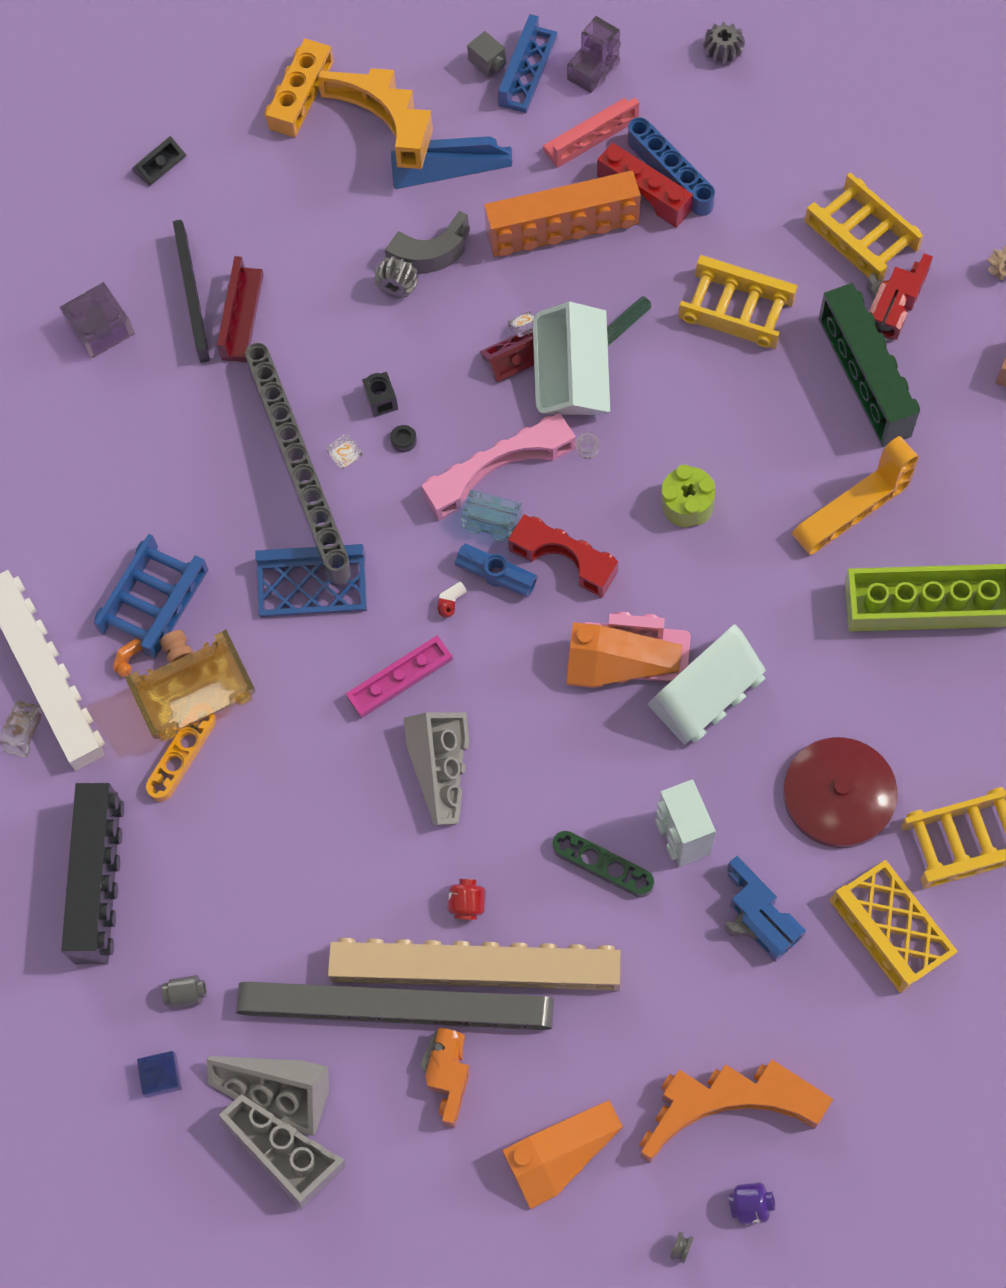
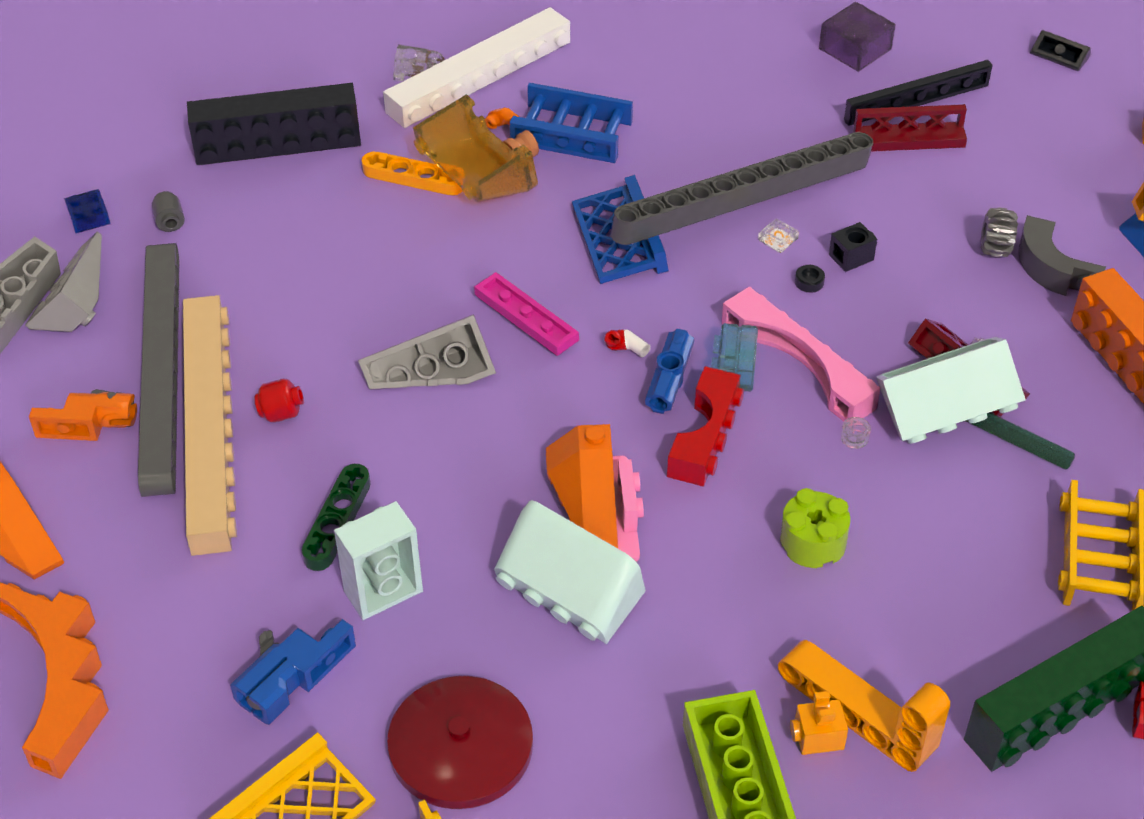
camera: 75 degrees right, 20 degrees down
(868, 536) = (819, 725): none -> light orange brick

